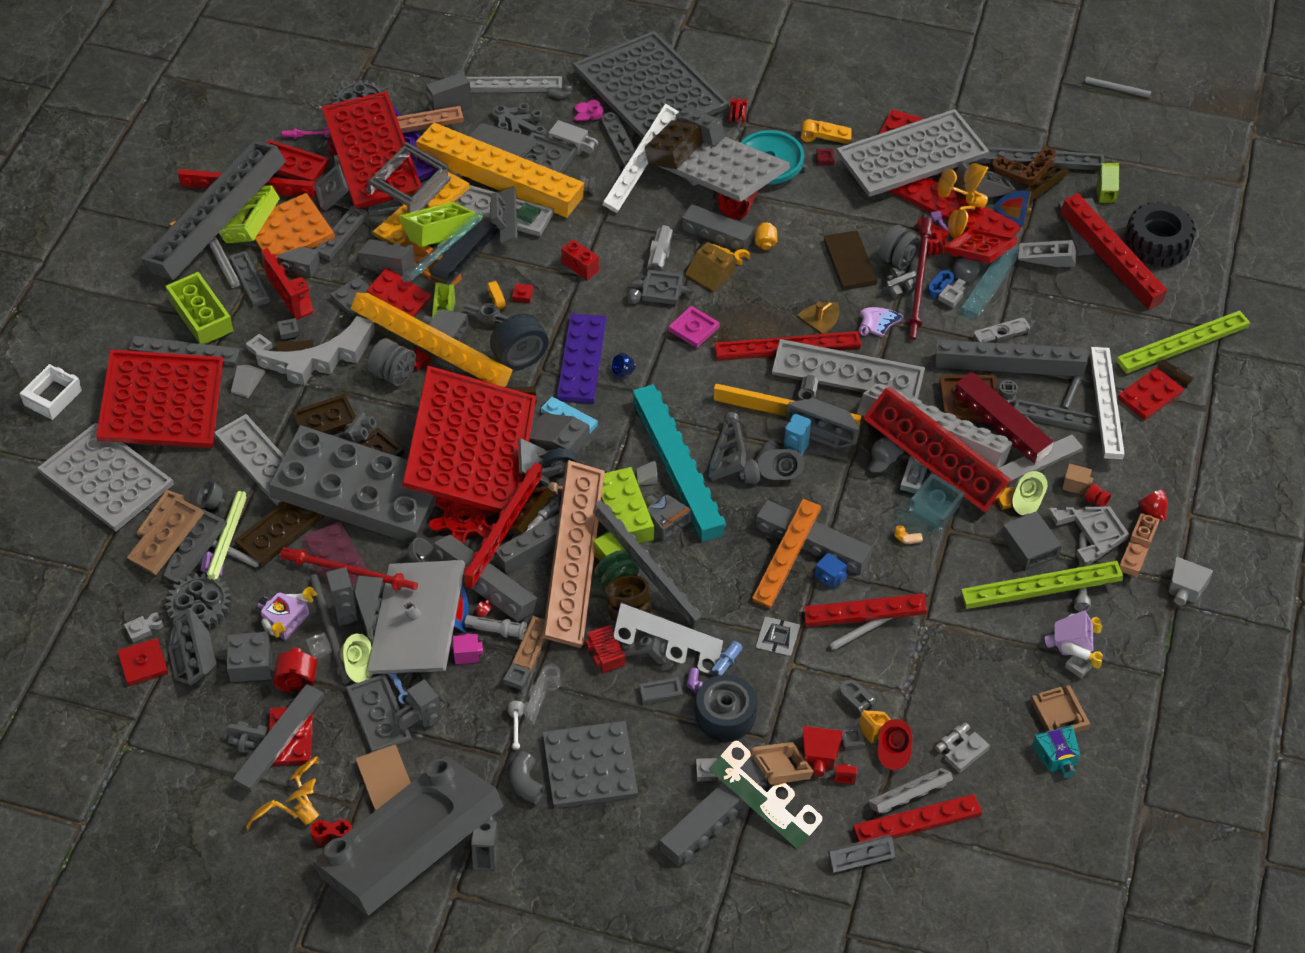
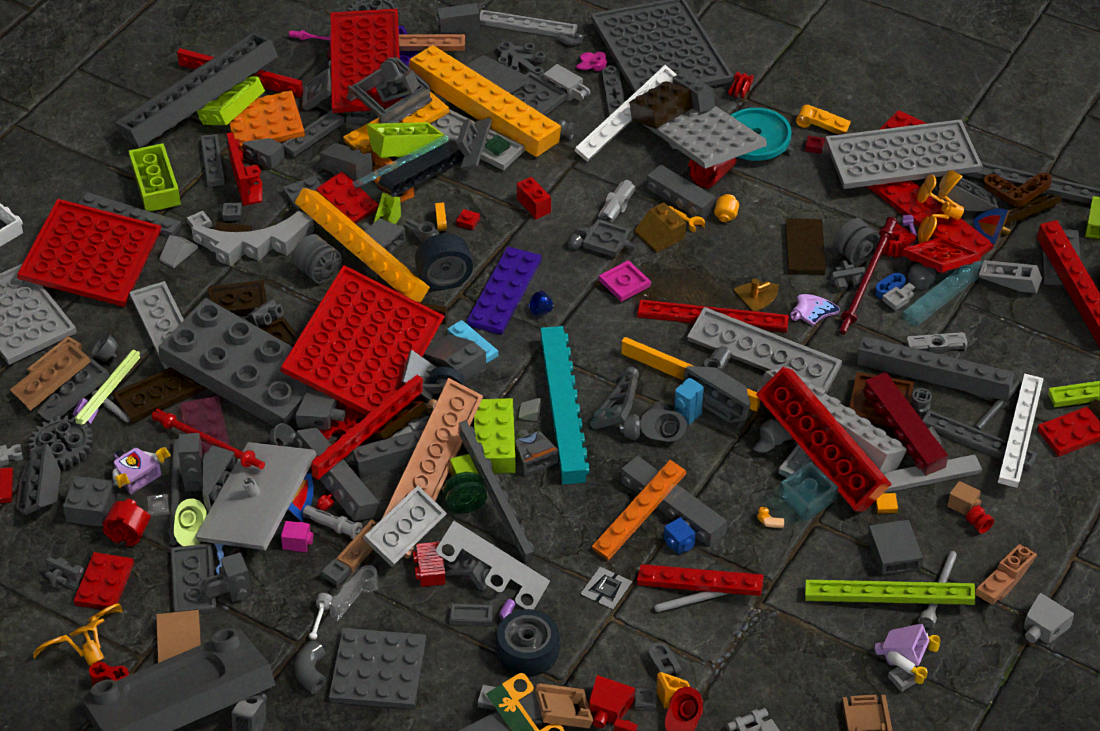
camera: 15 degrees right, 5 degrees down
(224, 263) = (193, 140): light grey axle -> none
(278, 737) = (90, 579): dark grey tile -> none
(300, 163) = (294, 62): red plate -> none
(414, 168) = (396, 83): none -> dark grey brick
(422, 359) = (348, 260): red plate -> none
(447, 518) = (318, 411): none -> dark grey torso
(571, 617) = (404, 526): none -> light grey plate
(630, 591) = (470, 514): dark brown wheel -> none
(727, 658) = (547, 597): medium blue axle -> none
(1029, 492) = (908, 500): yellowish green piece -> none
(1099, 526) = (971, 549): light grey wing -> none
(1155, 505) = (1036, 538): red helmet -> none

